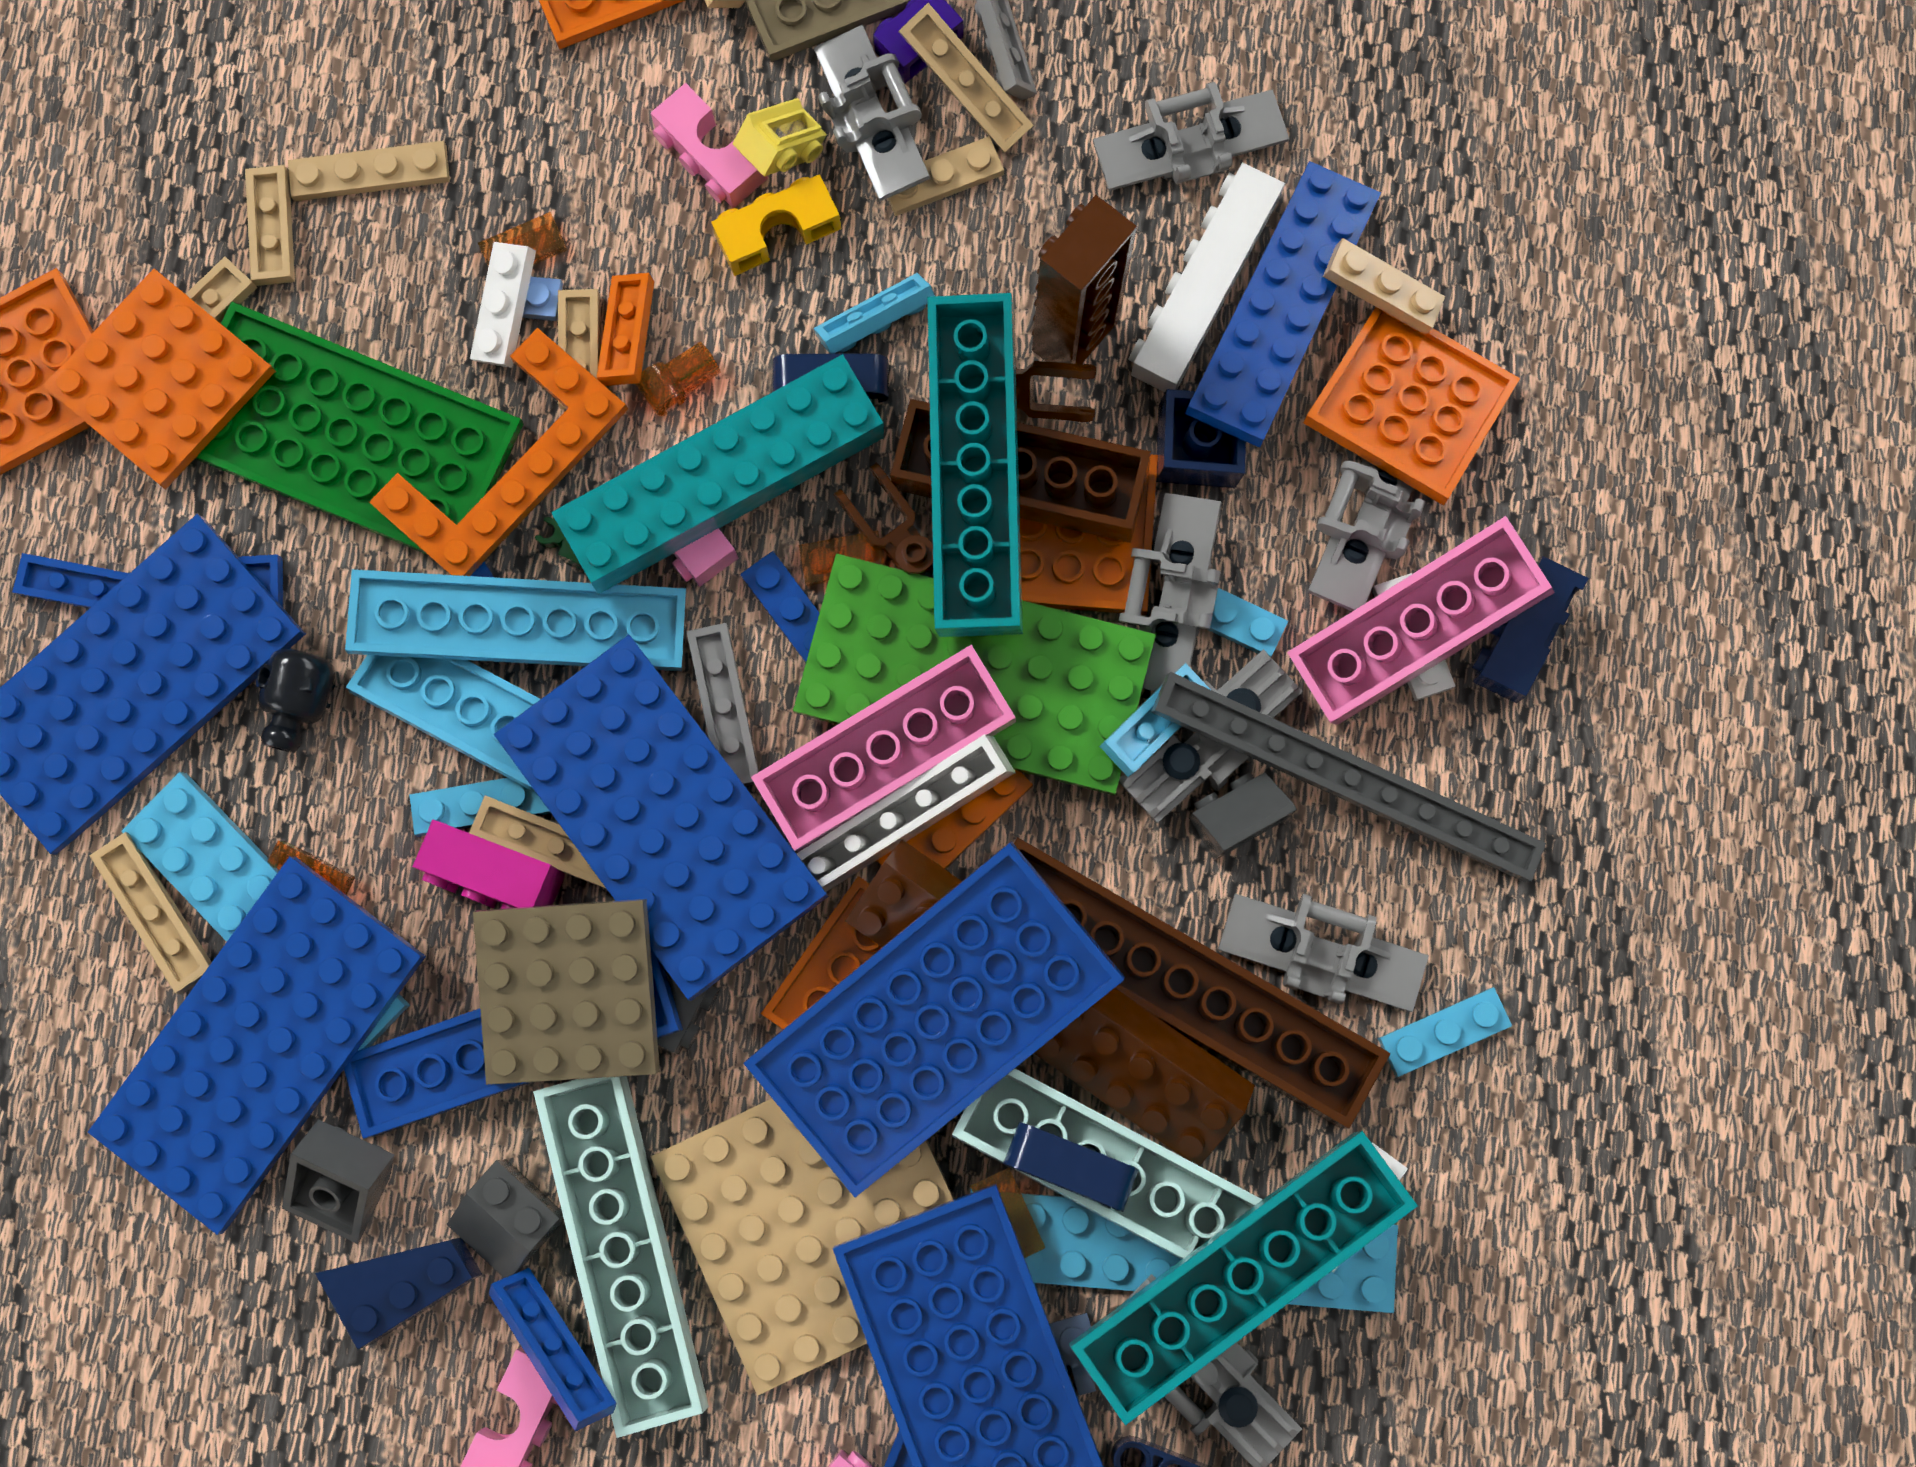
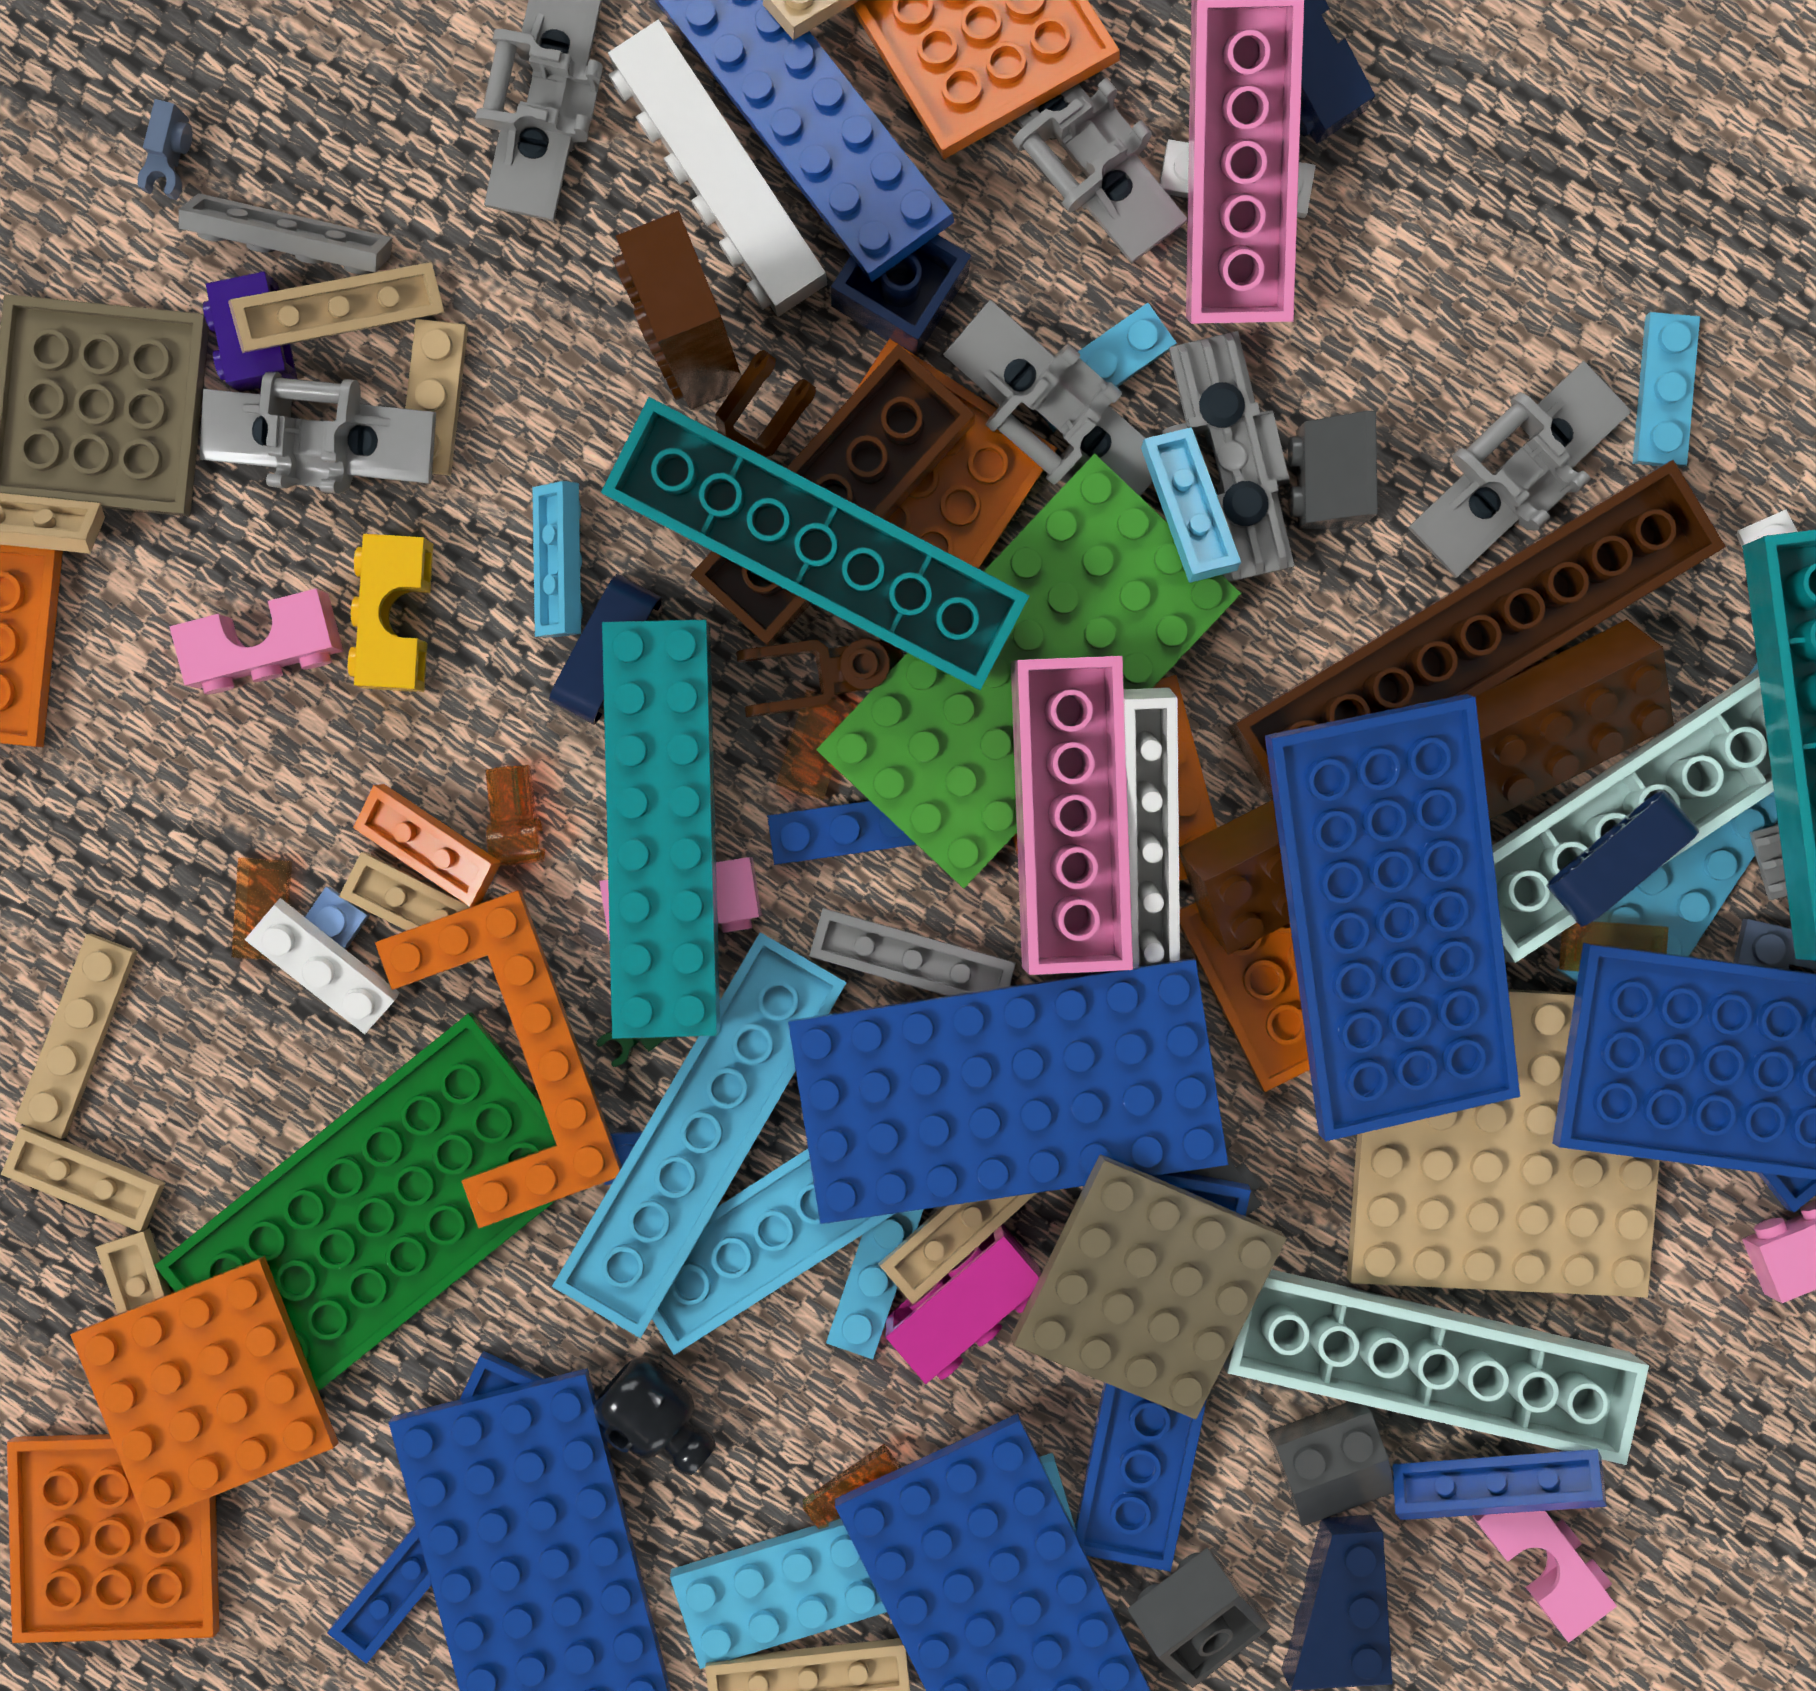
camera: 65 degrees left, 10 degrees up
(779, 137) = (296, 555): light yellow window -> none
(1348, 777) = (1358, 337): dark grey plate -> none

